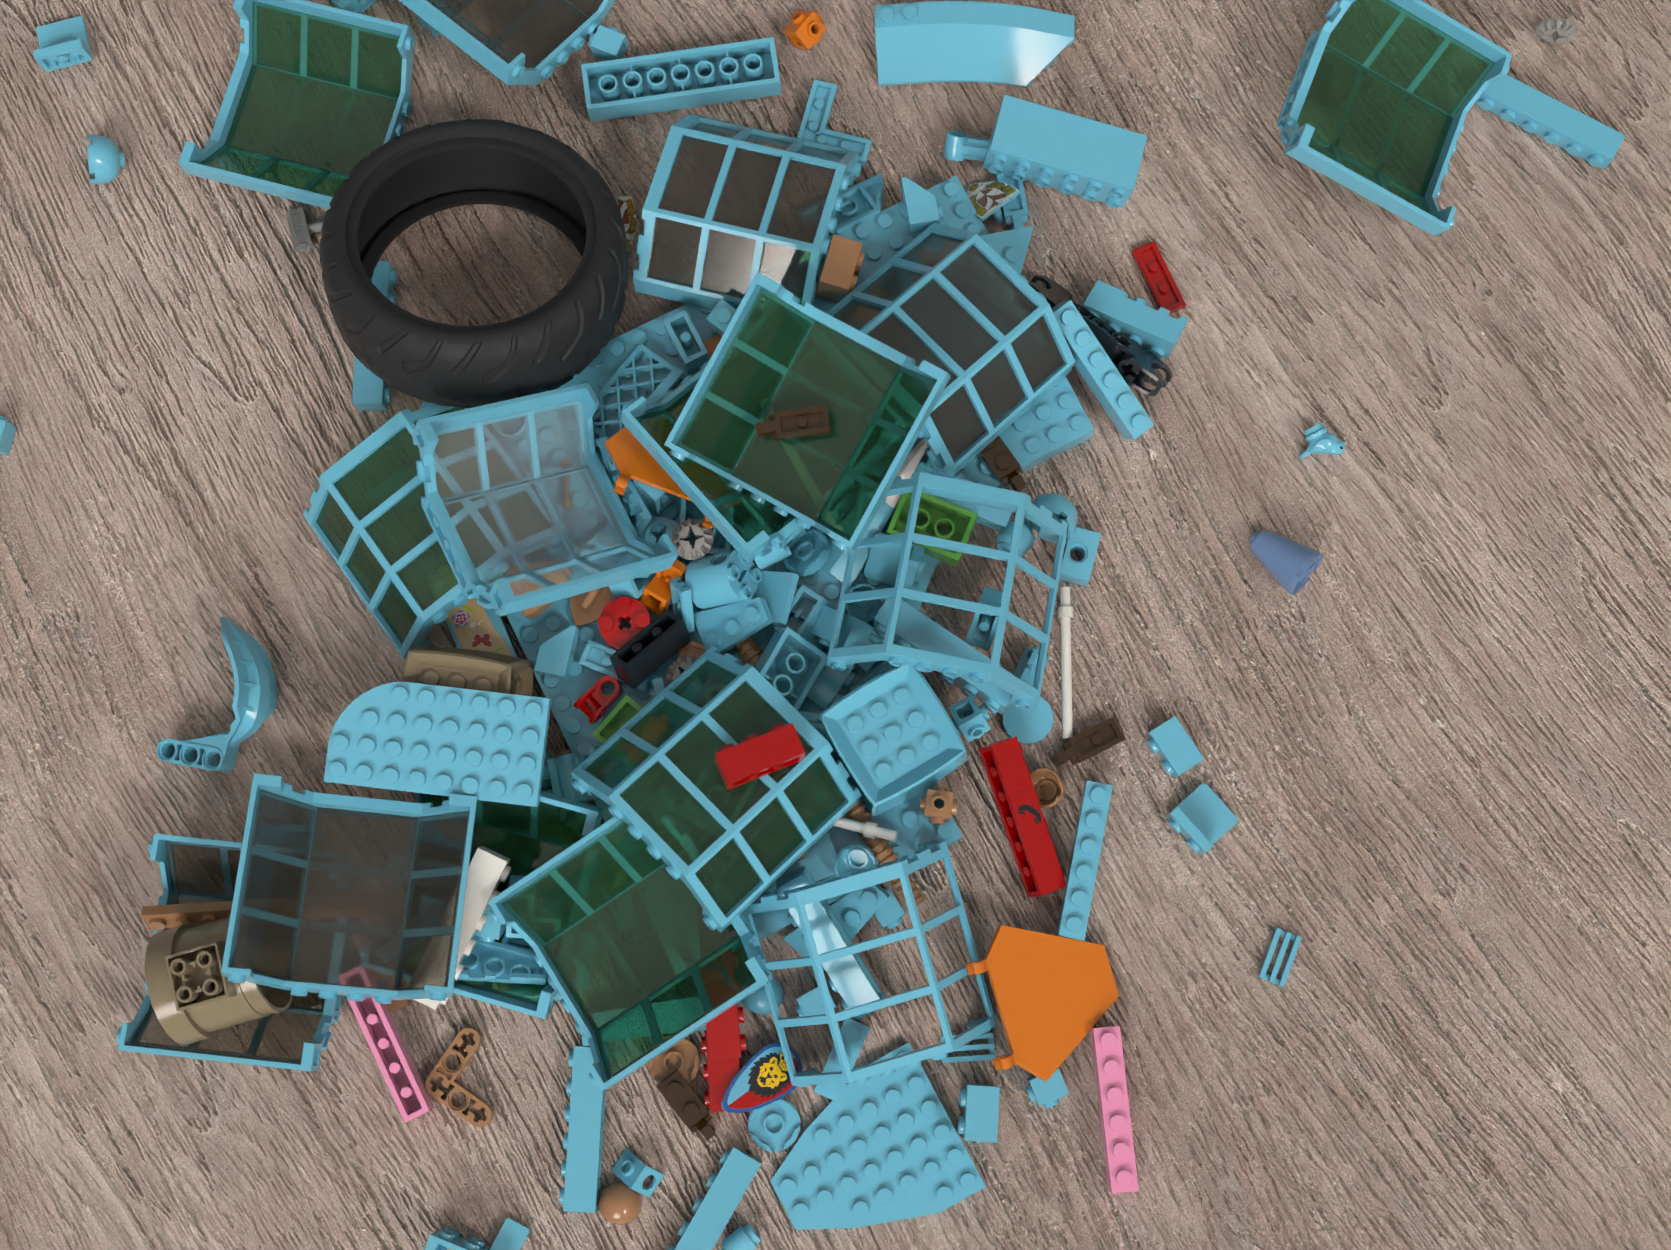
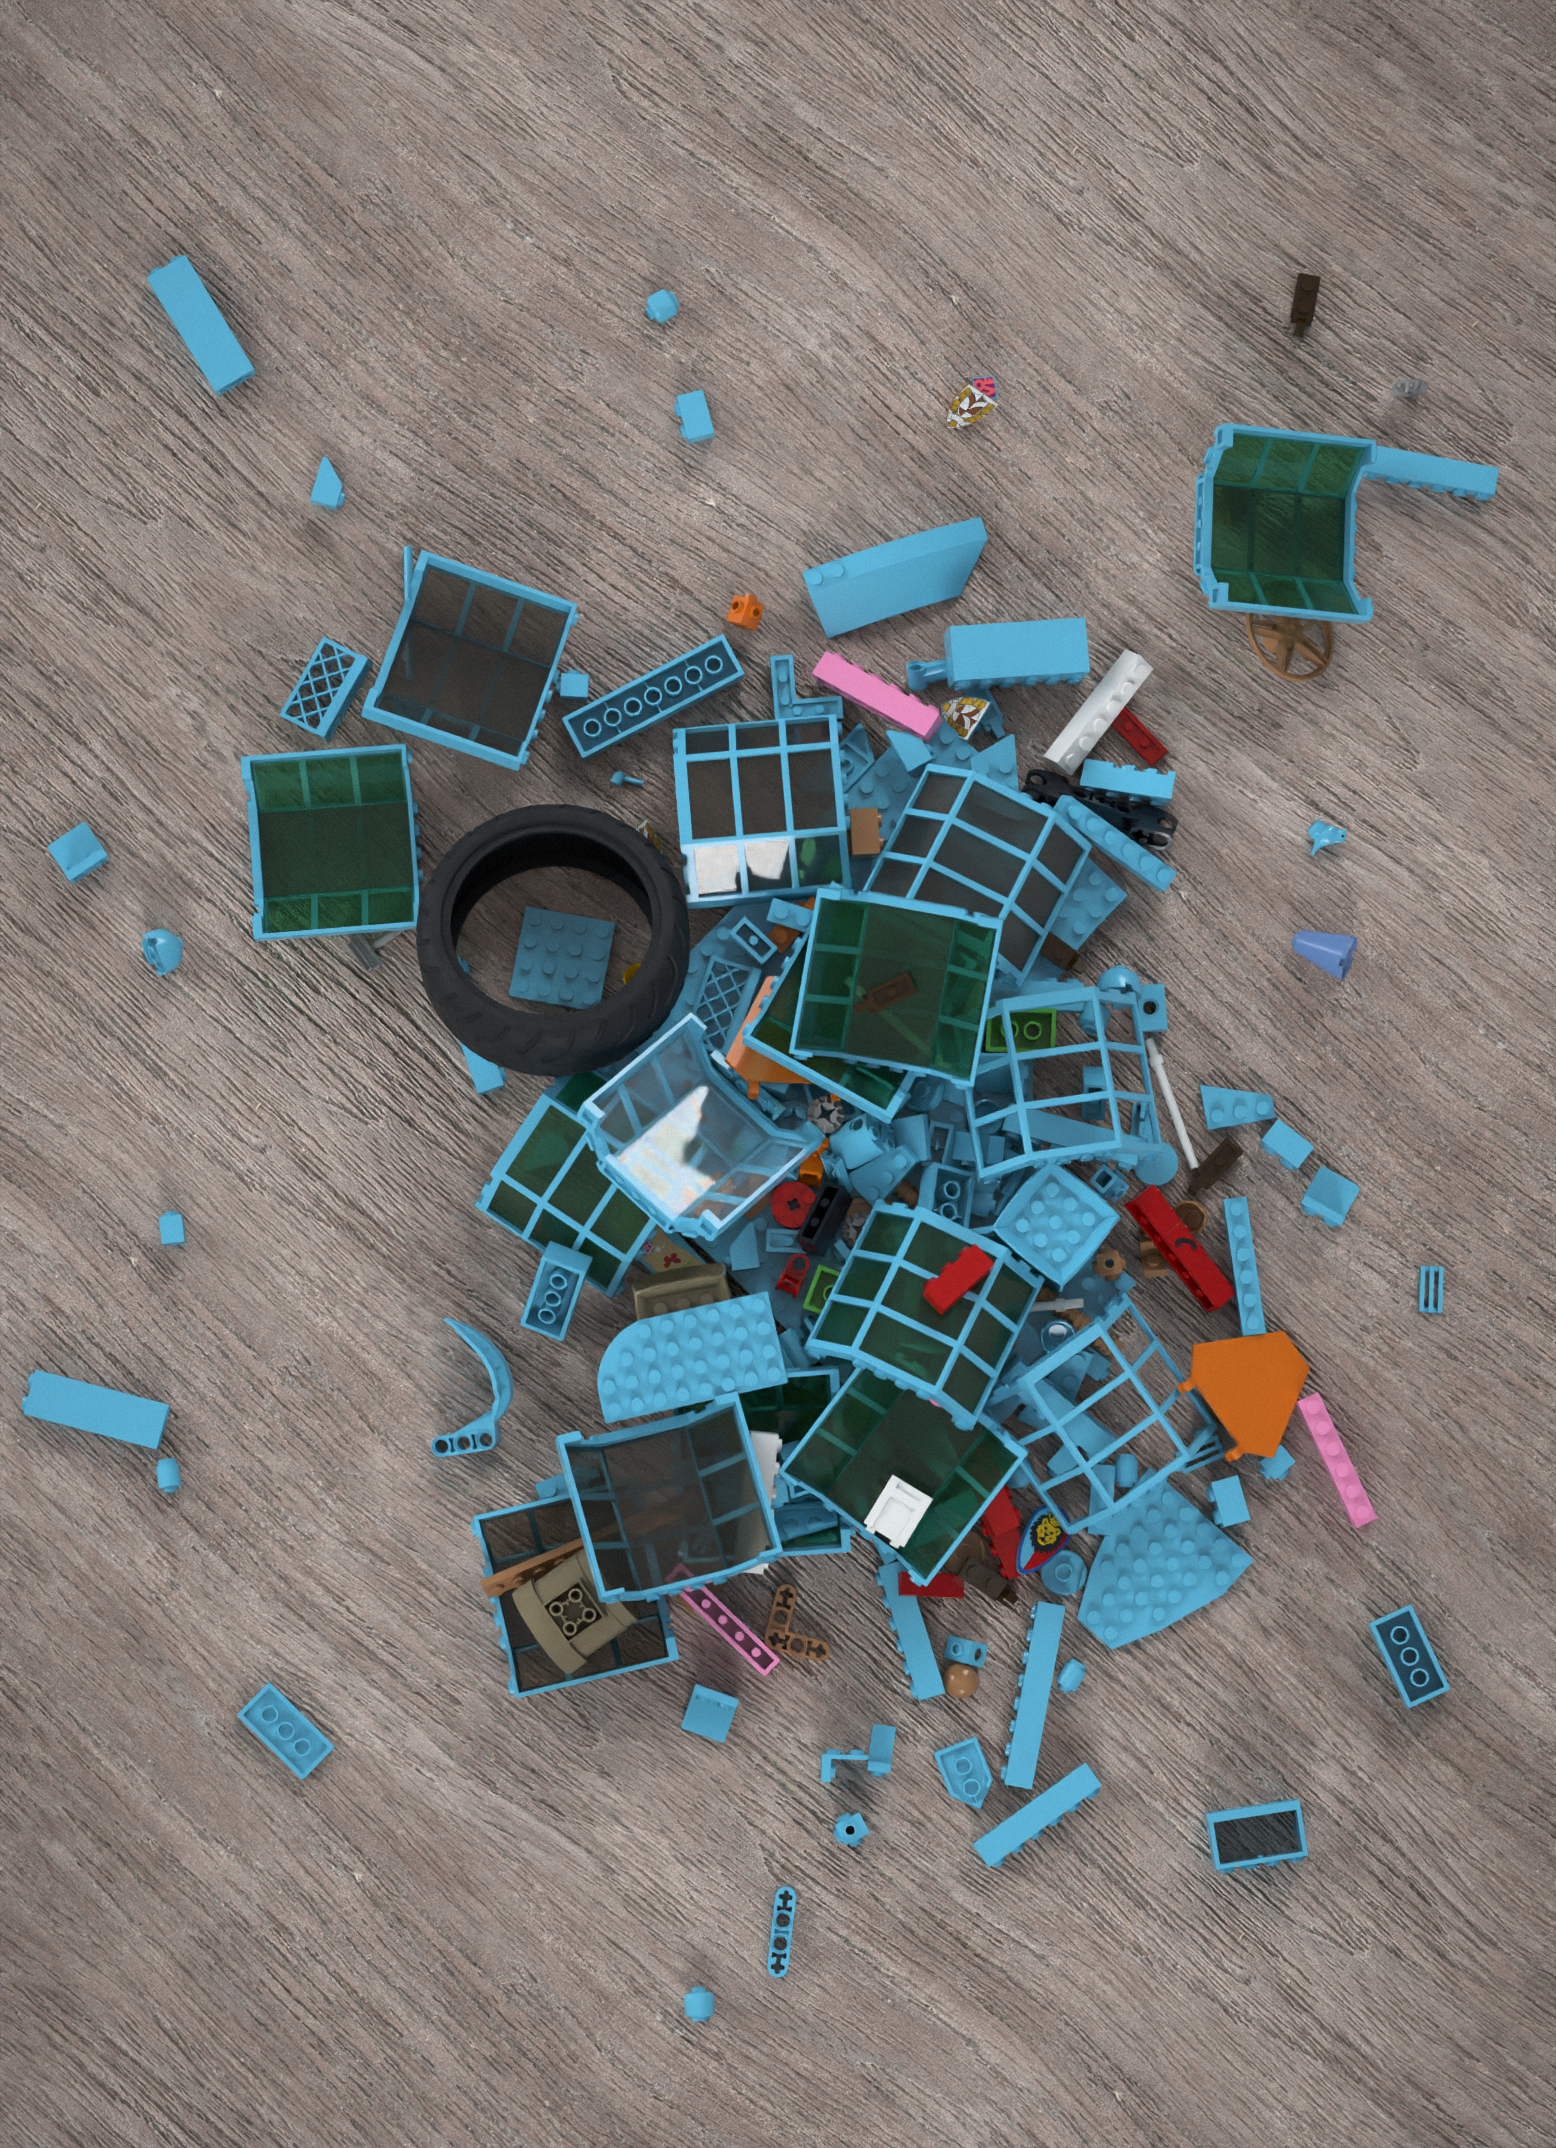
camera: 25 degrees left, 5 degrees up
(337, 1139) = (709, 1713): none -> medium azure bracket
(346, 628) = (556, 1291): none -> medium azure brick
(491, 290) = (562, 958): none -> medium azure plate
(606, 993) = (897, 1511): none -> white container
(619, 147) = (619, 777): none -> medium azure hand
(631, 1090) = (940, 1586): none -> red tile
(881, 1036) = (1126, 1470): none -> medium azure brick
(907, 148) = (878, 697): none -> bright pink brick
(988, 818) = (1151, 1259): none -> medium nougat slope
(1127, 240) = (1098, 712): none -> white brick
(1132, 690) = (1234, 1107): none -> medium azure wing
(1351, 226) = (1288, 636): none -> medium nougat wheel

